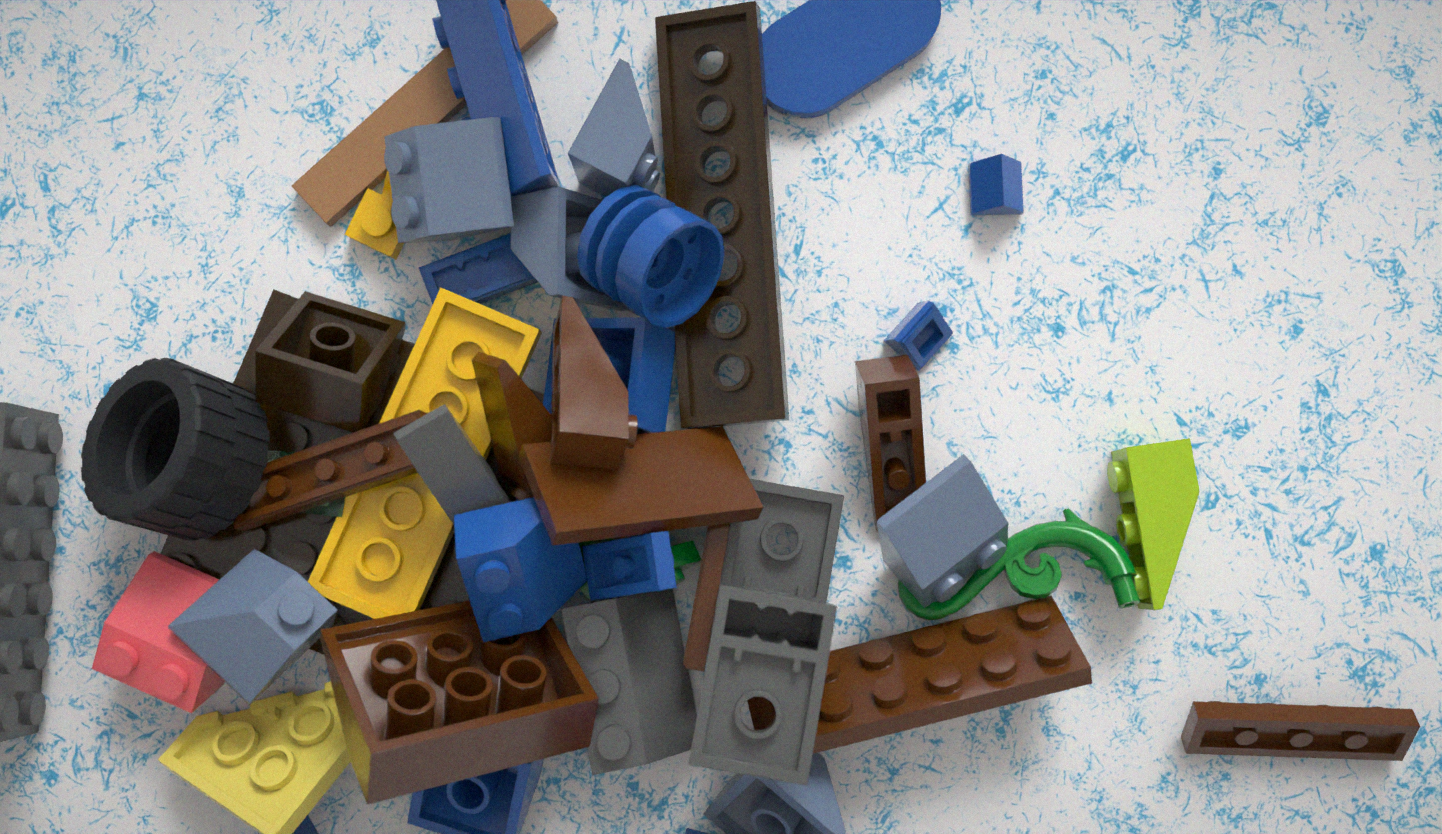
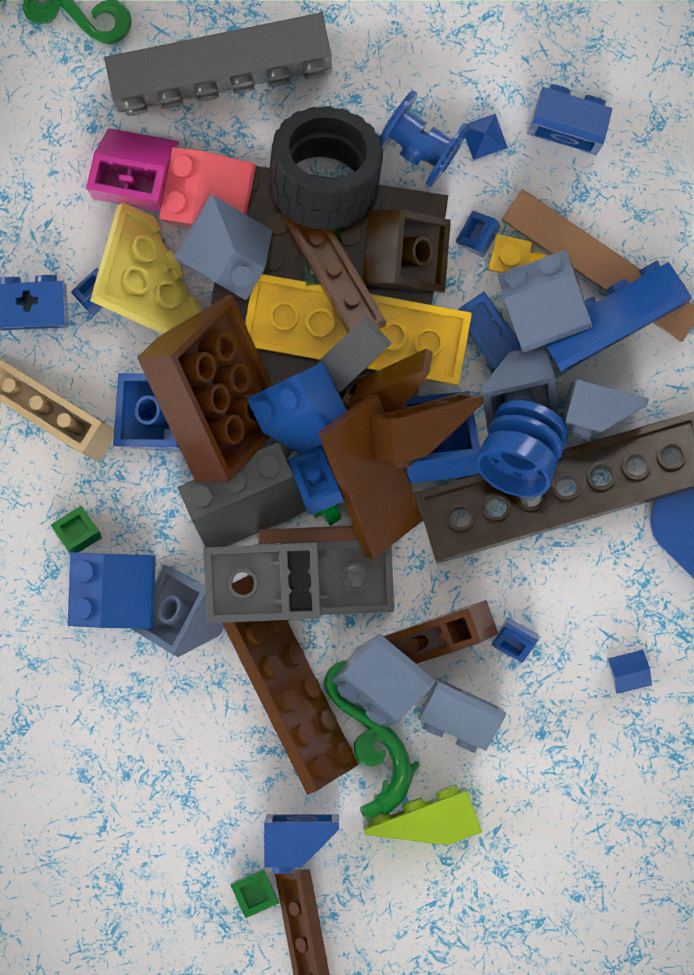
camera: 80 degrees right, 5 degrees up
(115, 743) = (130, 169): none -> dark pink slope
(184, 312) = (418, 144): none -> blue hose
(208, 224) = (485, 137): none -> blue slope
(212, 96) = (570, 119): none -> blue slope
(338, 259) = (478, 233): none -> blue slope
(1015, 429) = (461, 715): none -> sand blue slope
(1149, 712) = (295, 839): none -> blue slope
(1210, 790) = (254, 893): none -> green plate

